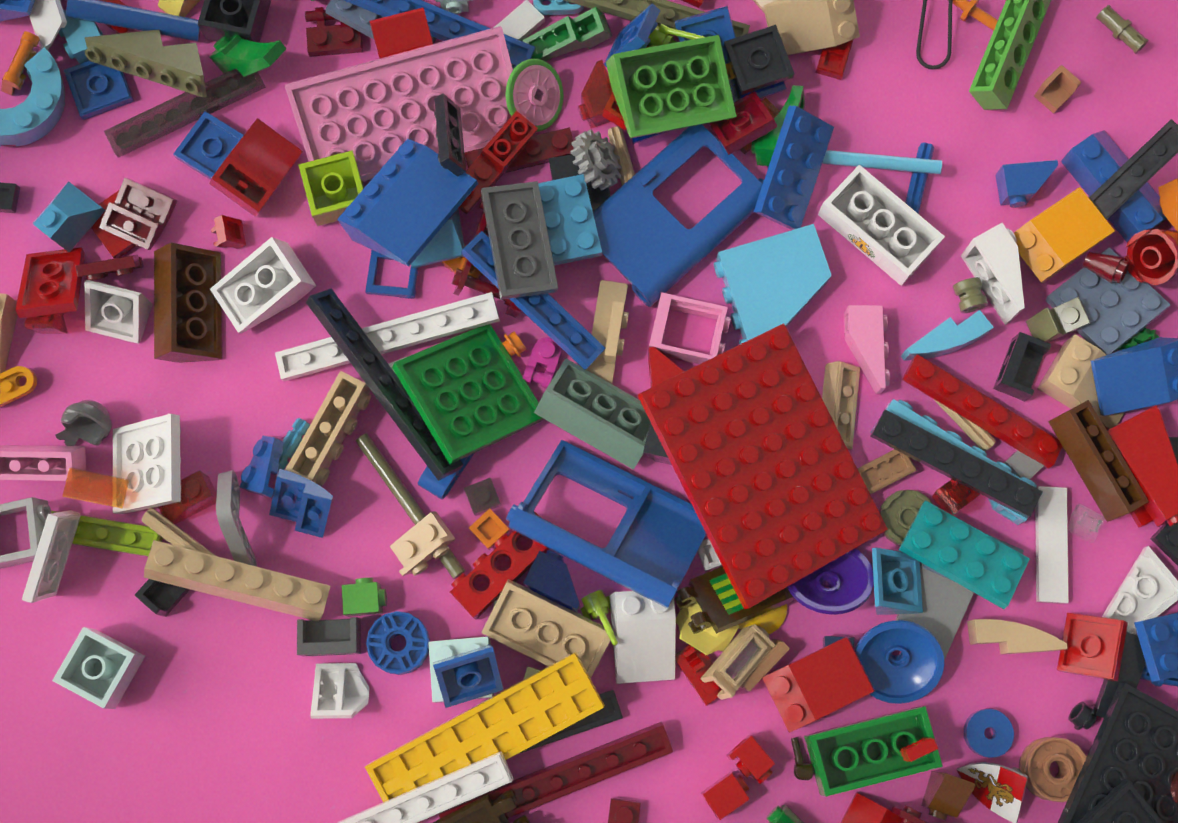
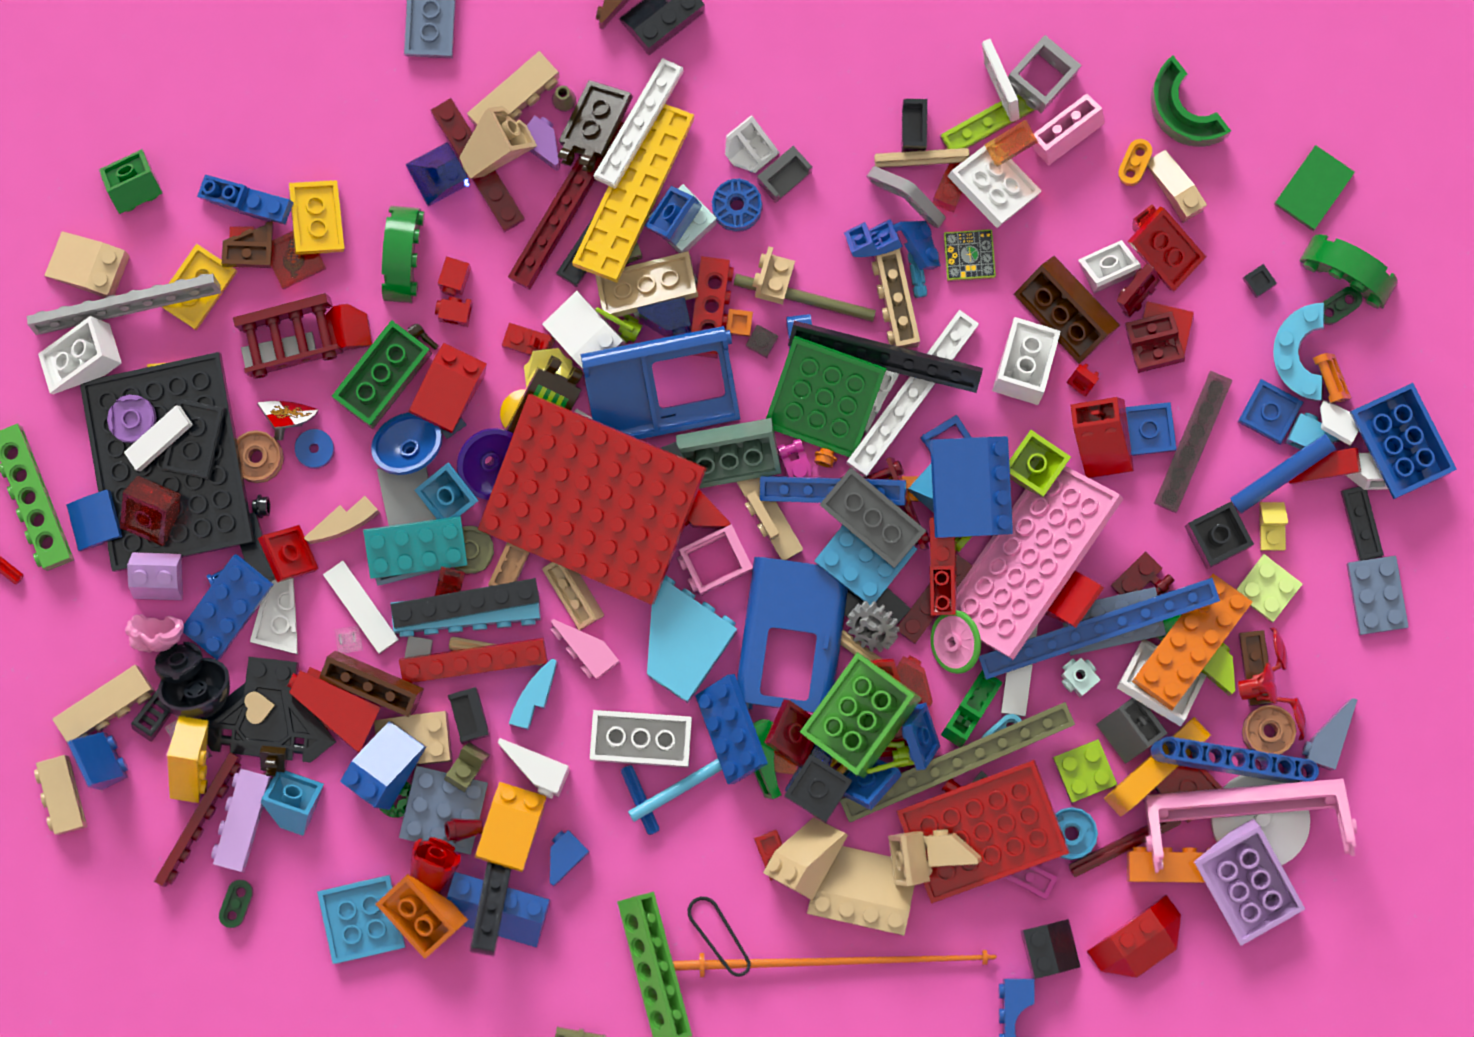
camera: 140 degrees right, 5 degrees up
(68, 216) = (1202, 302): dark azure slope -> none
(85, 421) = (1062, 181): dark grey hat -> none
(98, 668) = (911, 40): light aqua brick -> none
(147, 58) = (1251, 451): olive slope -> none
(228, 424) = (969, 255): none -> tile
(236, 581) = (868, 157): tan brick -> none
(245, 55) = (1178, 507): green slope -> none
(363, 598) = (783, 214): bright green brick -> none
(449, 135) = (981, 553): black plate -> none
(739, 660) = (510, 364): tan window -> none
(766, 664) = (493, 375): medium nougat tile -> none
(918, 749) = (355, 391): red tile -> none
(946, 795) = (315, 384): reddish brown slope -> none
(970, 295) = (540, 739): olive wheel -> none
(1057, 89) = (592, 948): nougat panel -> none

